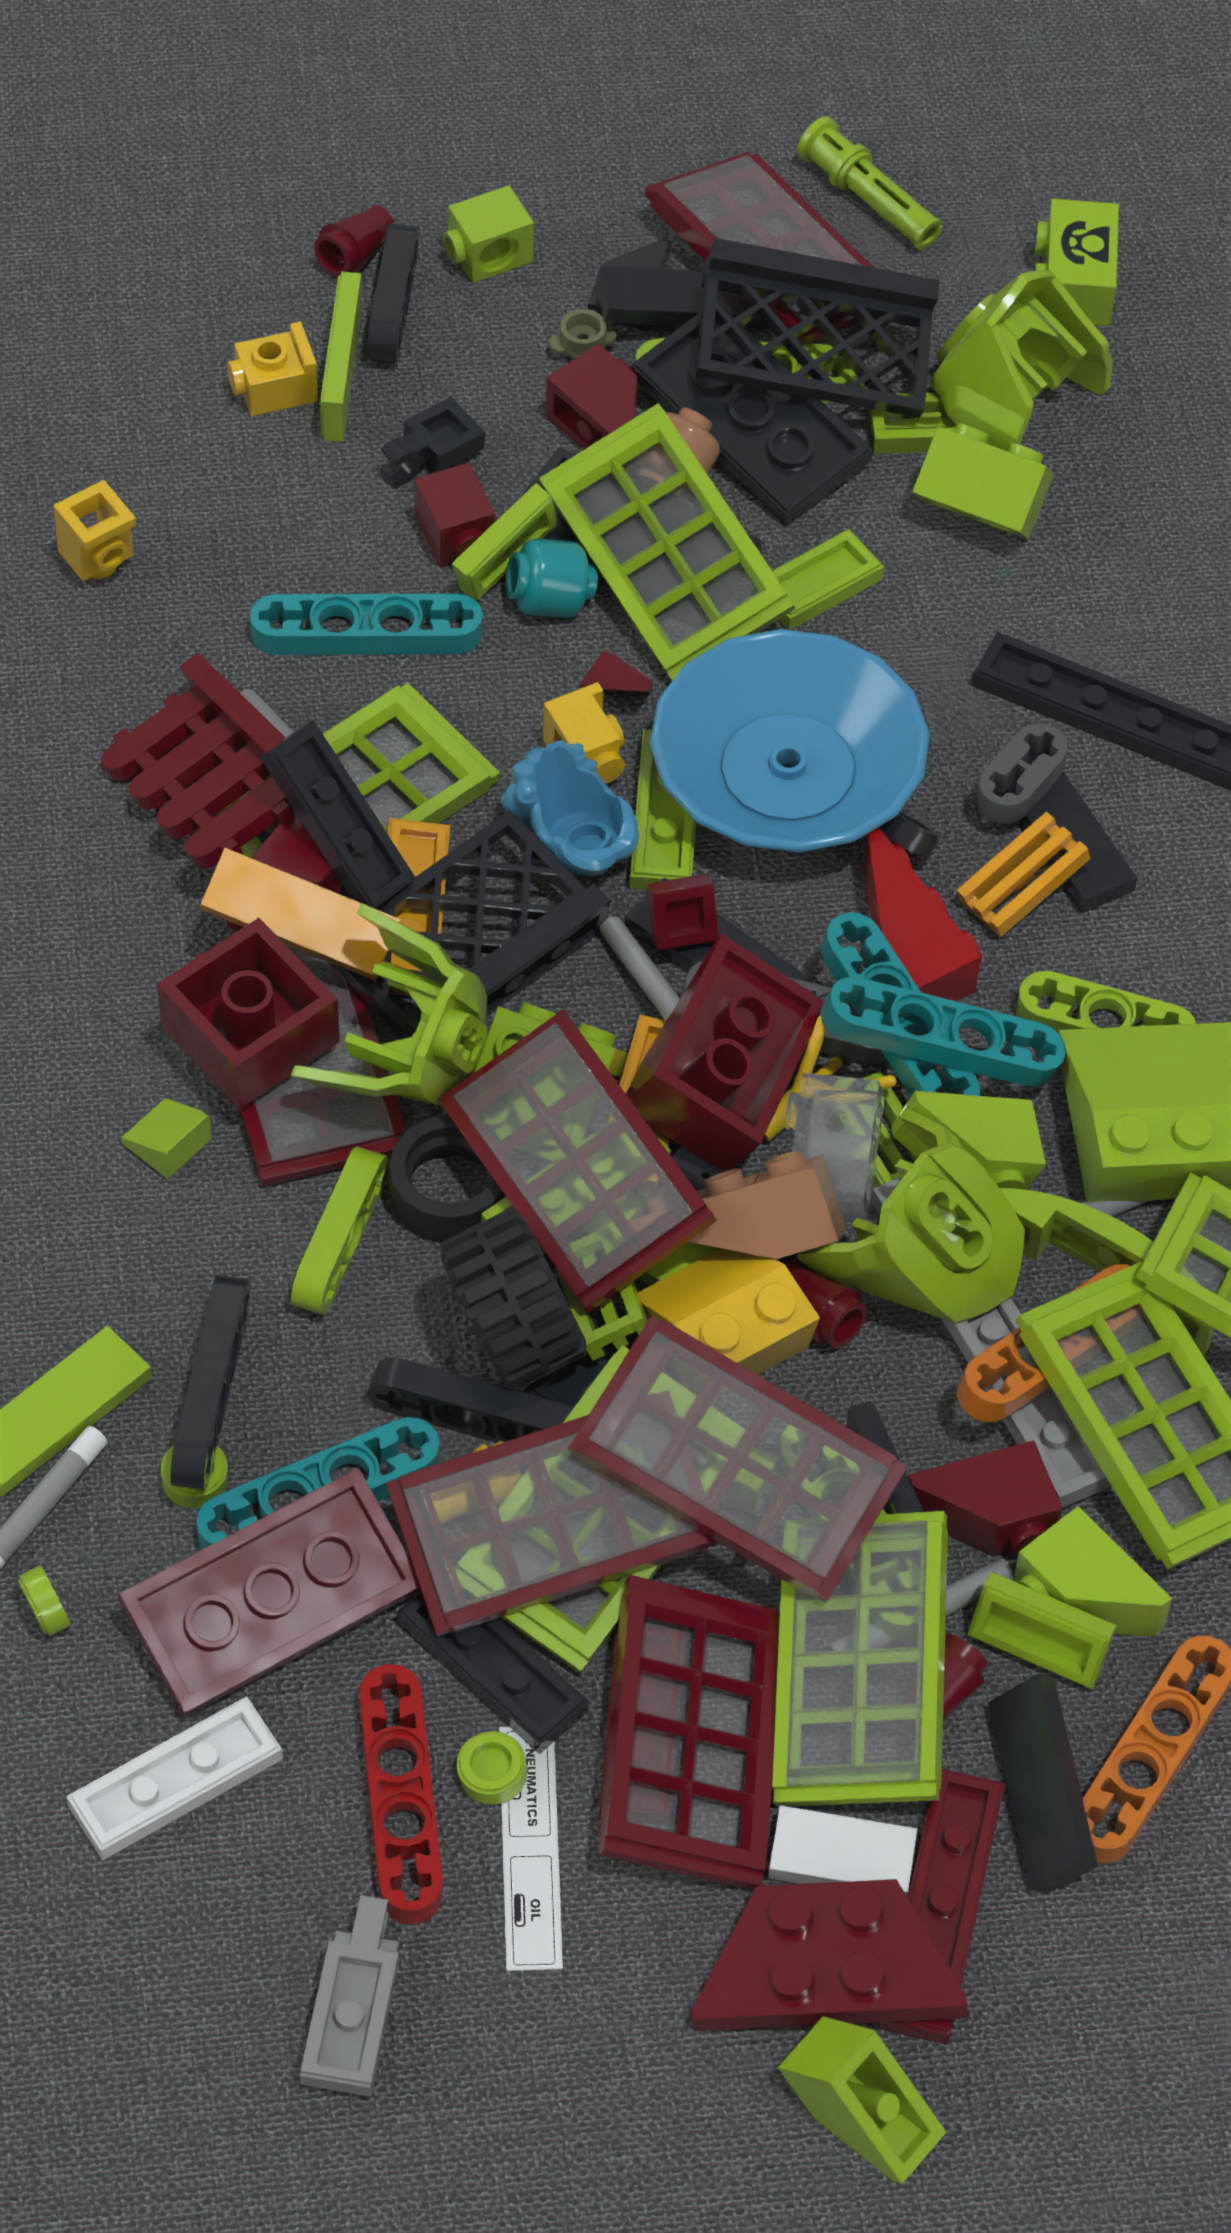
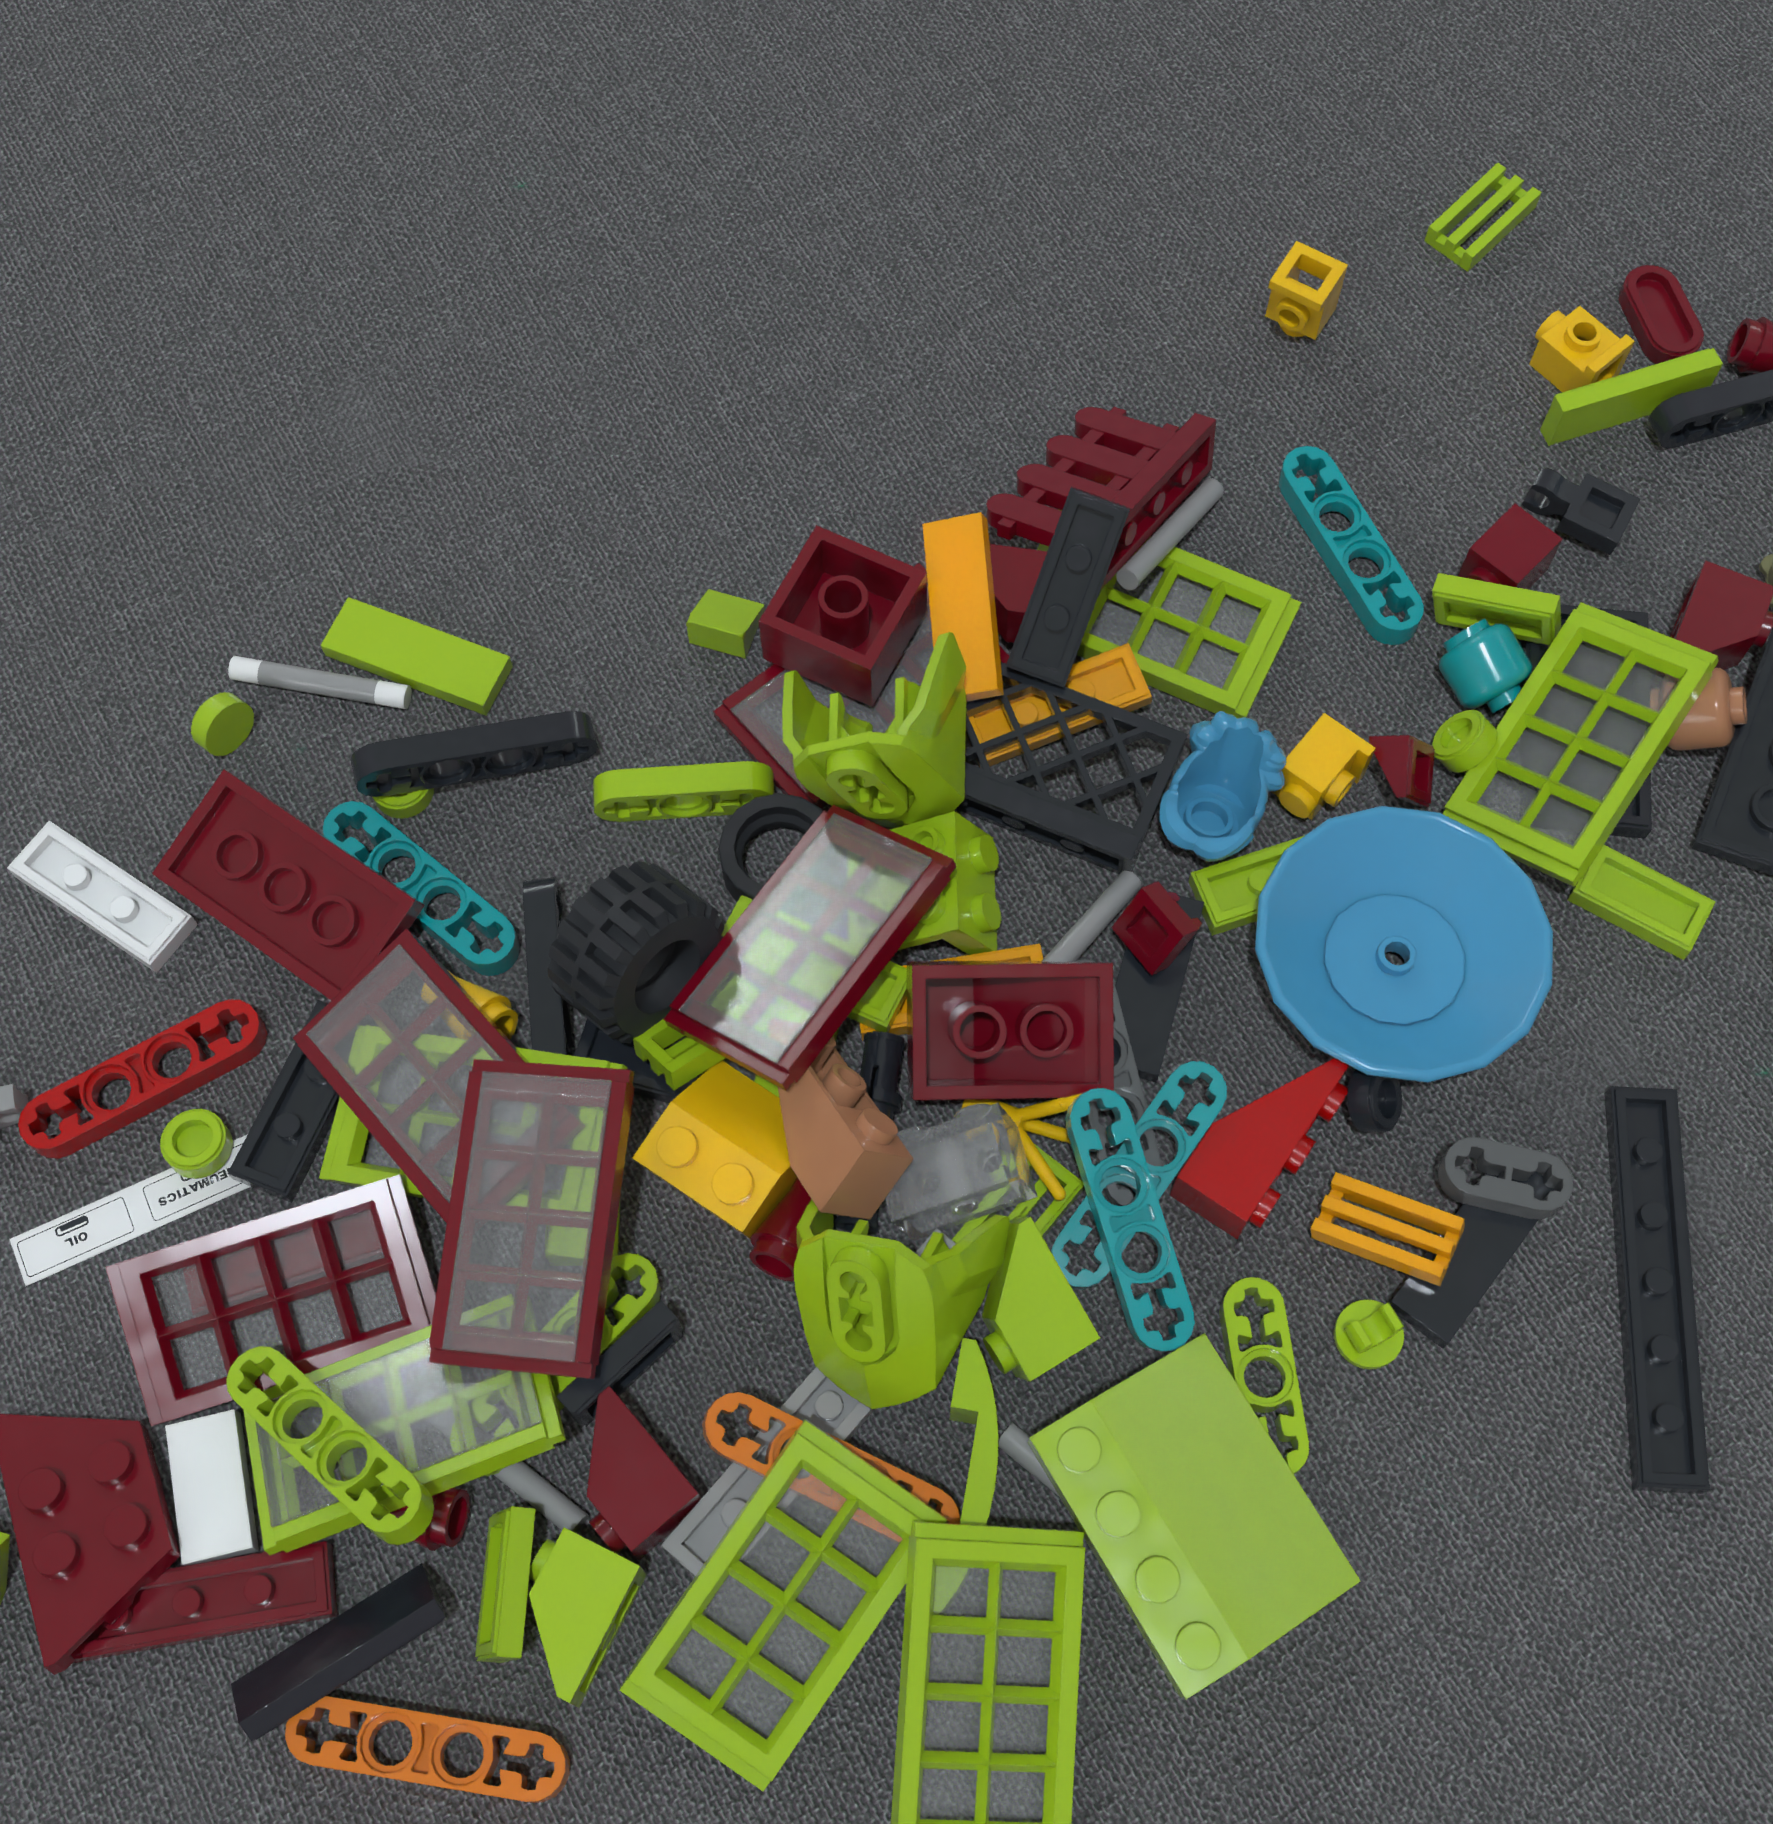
camera: 70 degrees right, 10 degrees up
(64, 342) = (1506, 190): none -> lime tile
(263, 299) = (1660, 314): none -> dark red tile
(613, 625) = (1464, 740): none -> lime tile
(872, 1713) = (326, 1445): none -> lime beam
(1103, 927) = (1369, 1334): none -> lime plate

